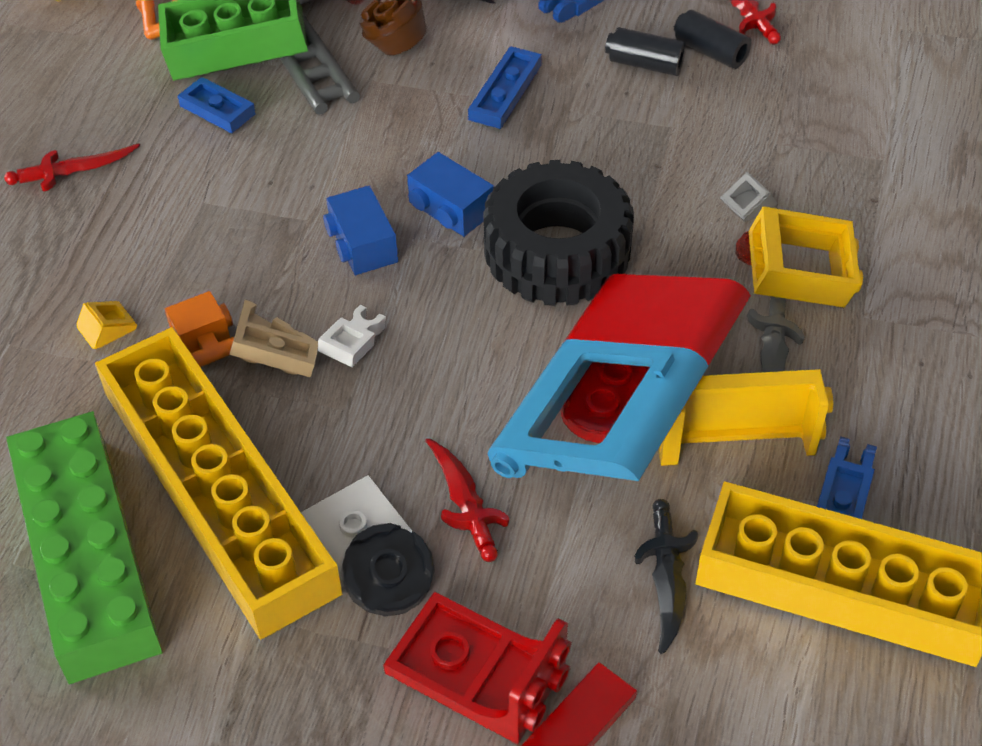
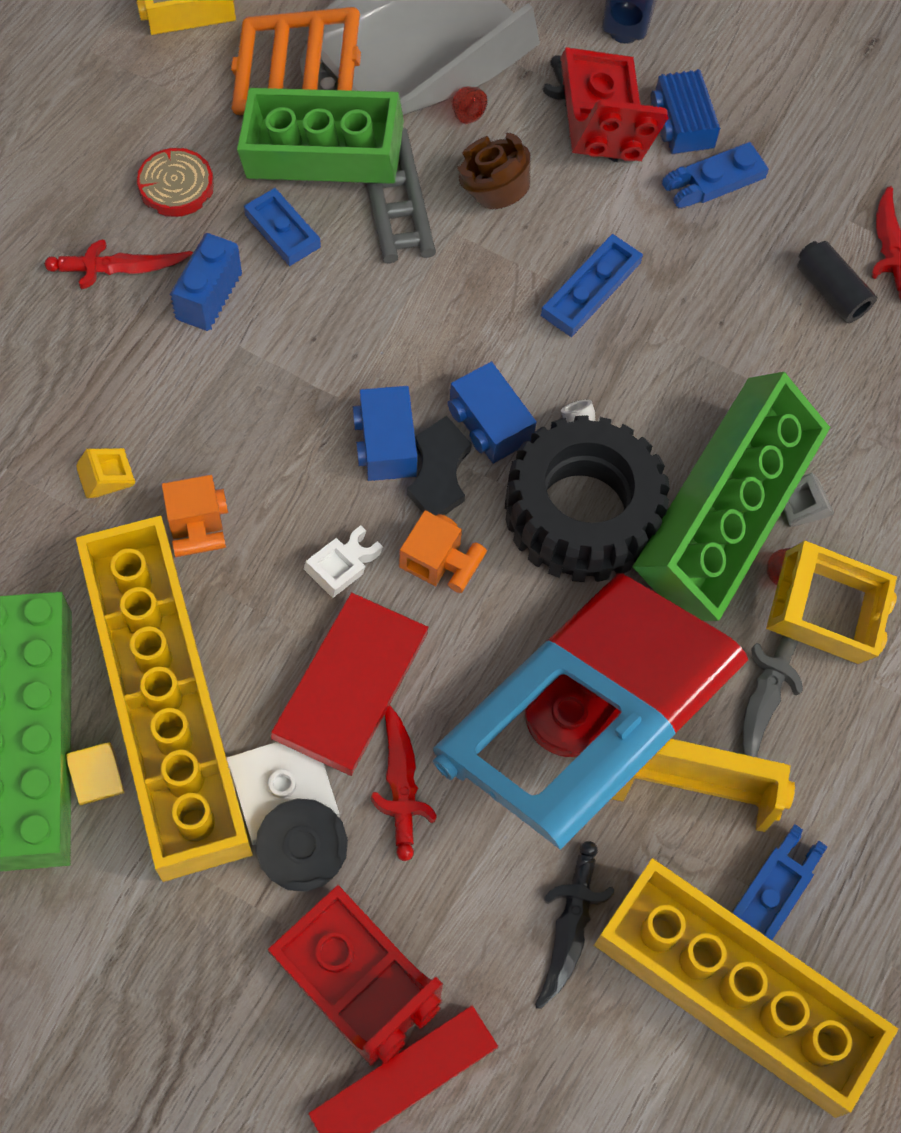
camera: 10 degrees right, 15 degrees up
(109, 95) = (175, 181): none -> tile
(160, 156) = (206, 282): none -> blue brick
(165, 562) = (95, 773): none -> yellow slope
(273, 343) = (260, 549): tan wing -> none
(390, 429) = (350, 684): none -> red tile
(419, 261) = (441, 450): none -> black tile
(434, 305) = (435, 547): none -> orange brick
(646, 51) = (758, 278): black brick -> none
(687, 192) = (733, 497): none -> bright green brick

